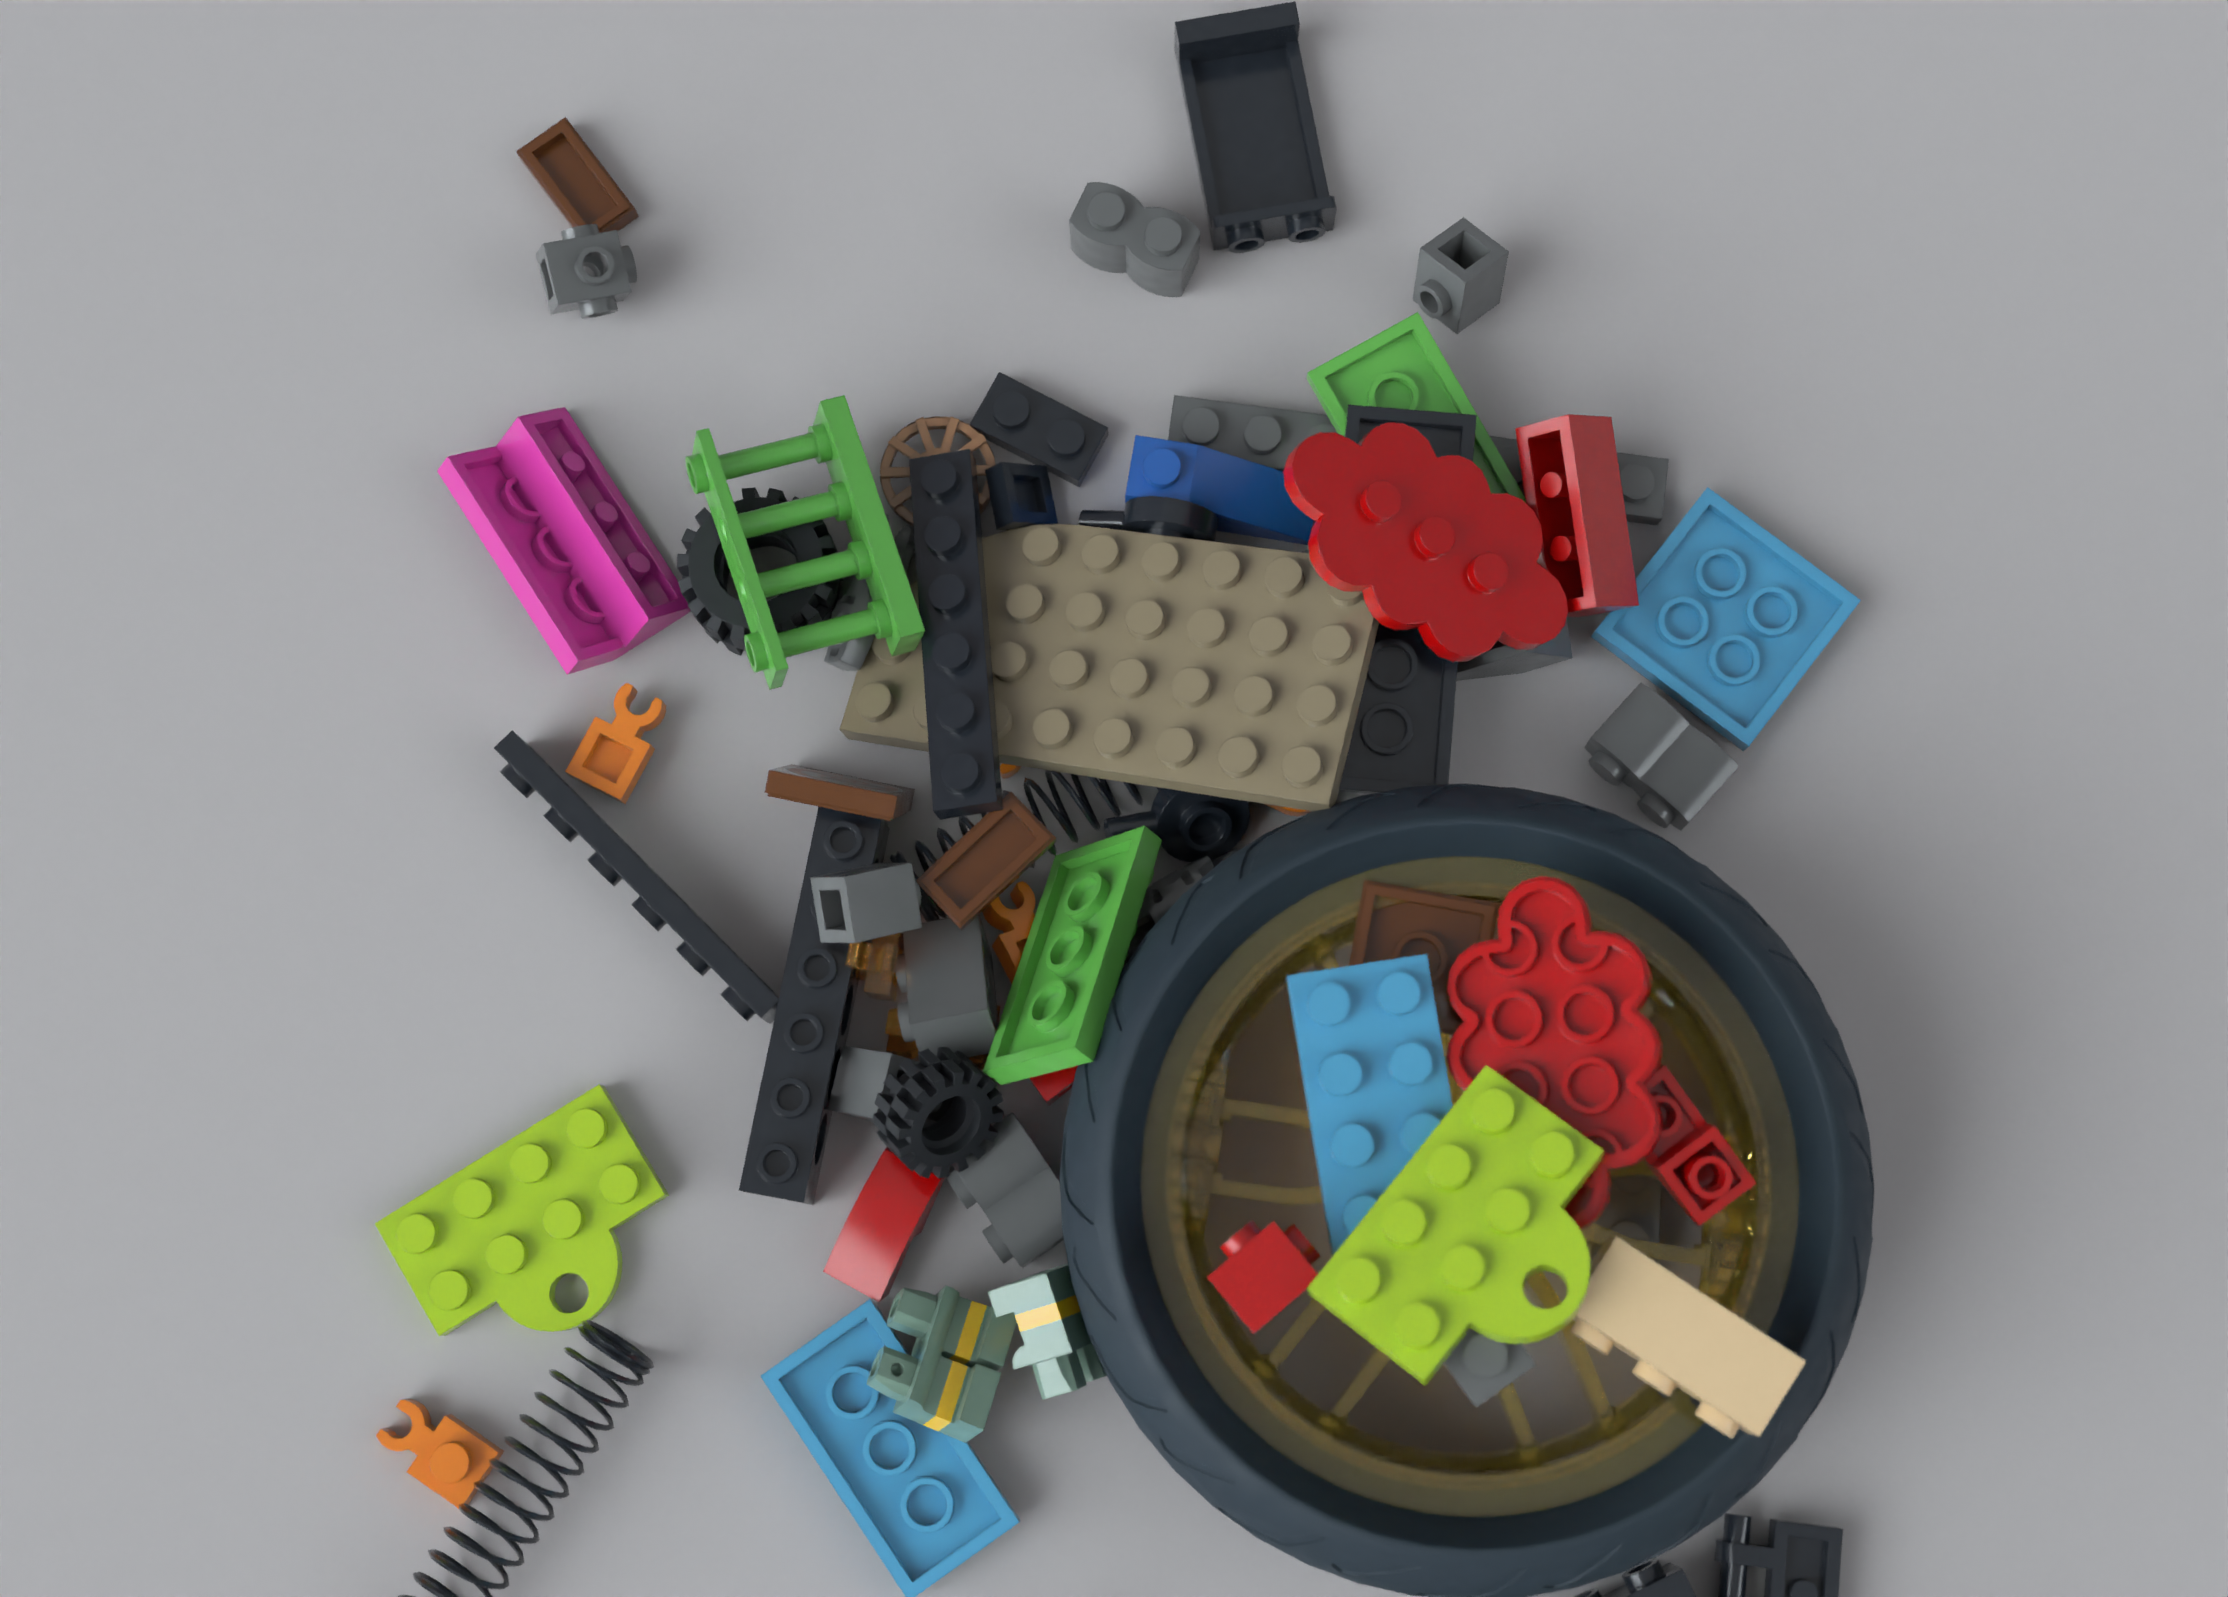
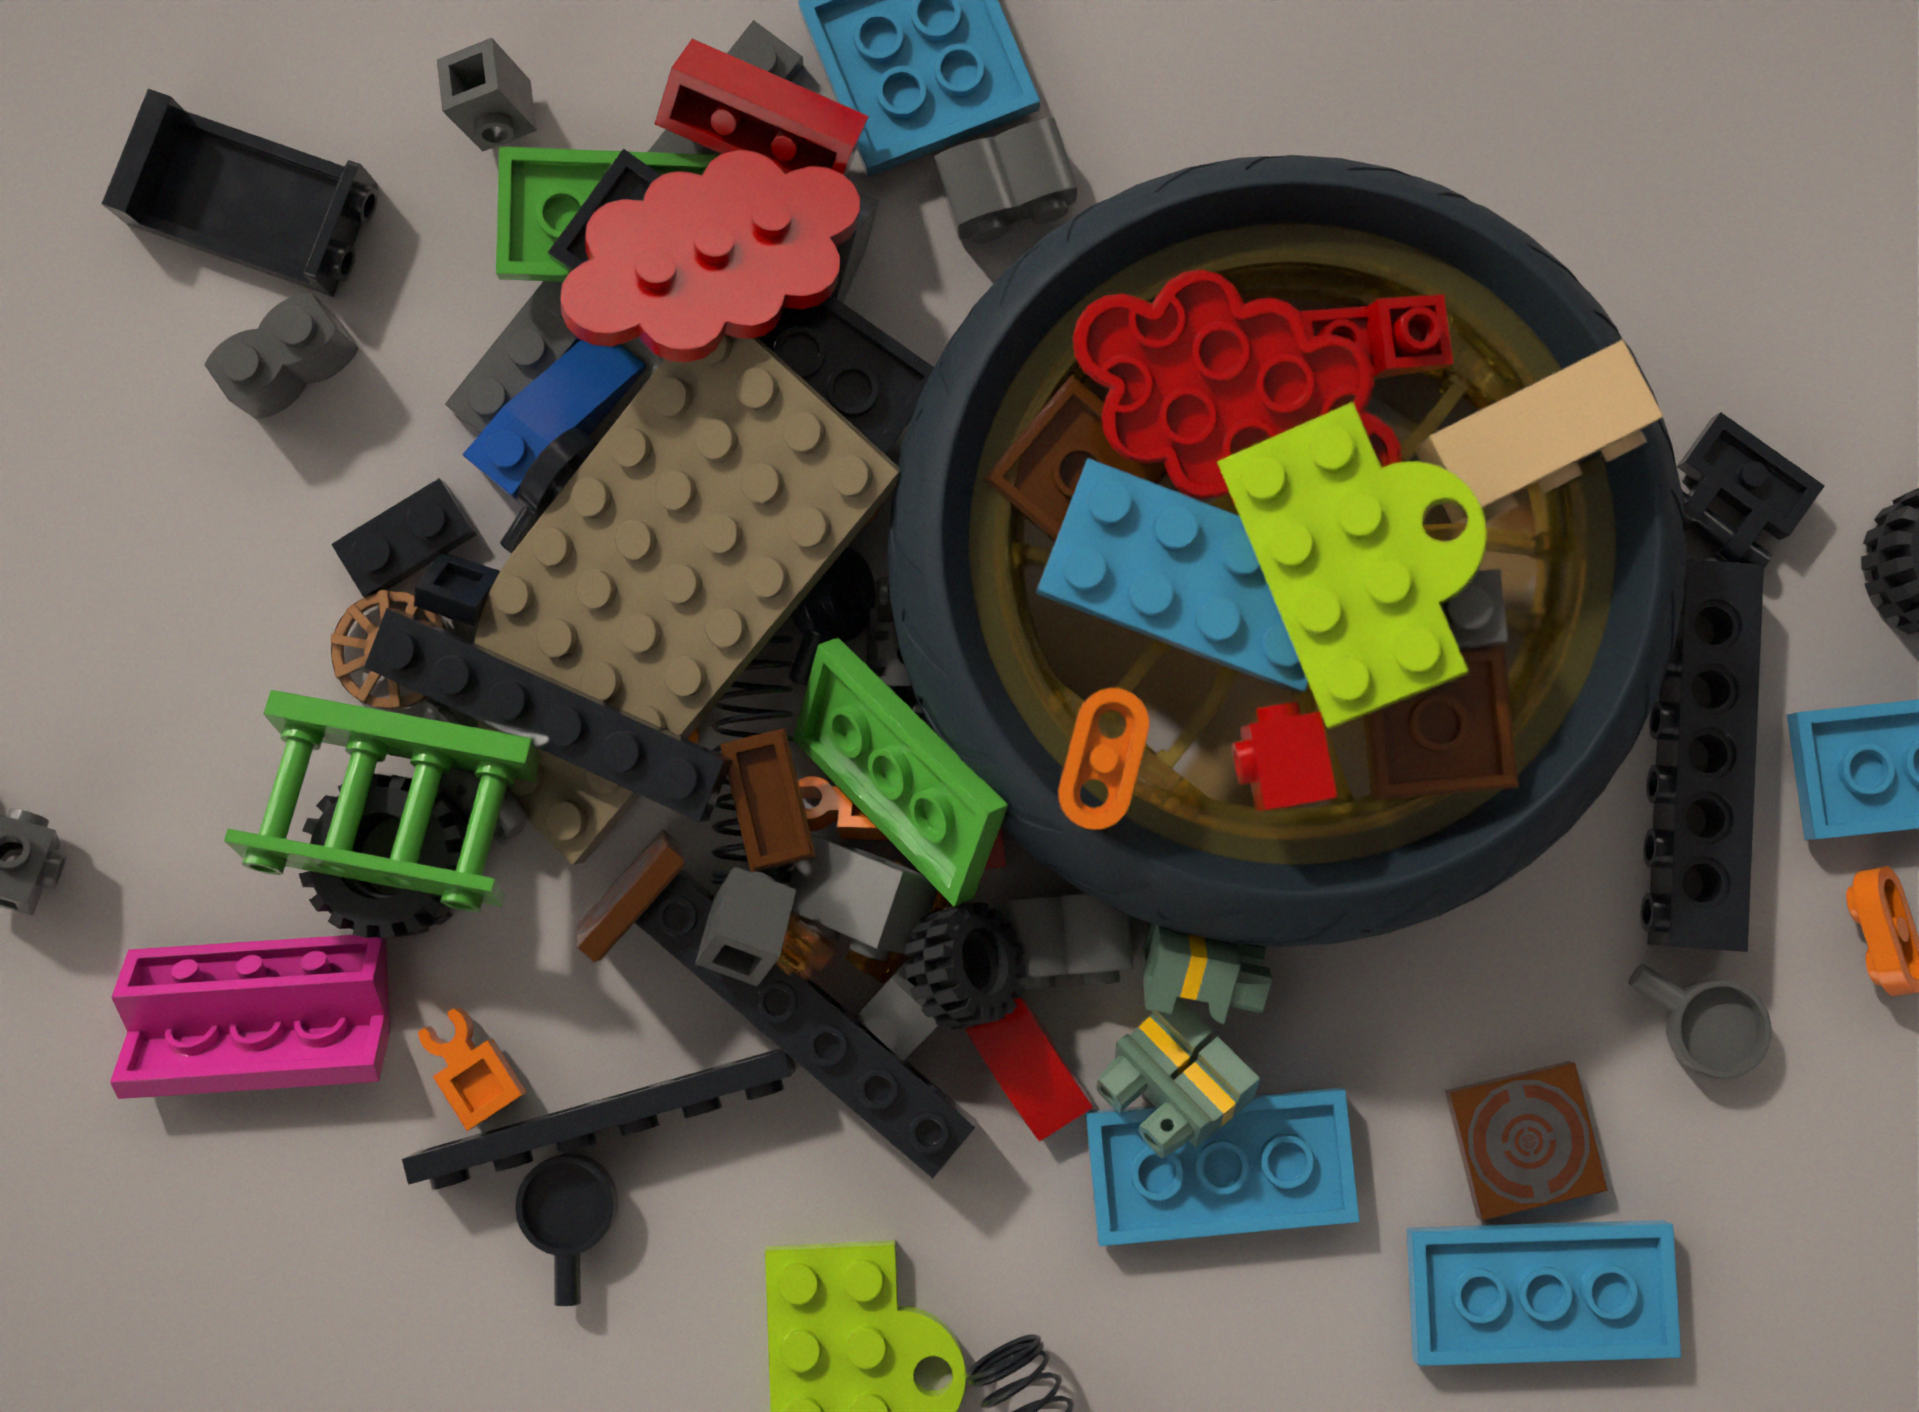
camera: 65 degrees left, 5 degrees up
(542, 893) = (564, 1211): none -> black piece
(1174, 1115) = (1103, 759): none -> orange plate
(1371, 1408) = (1446, 736): none -> reddish brown tile

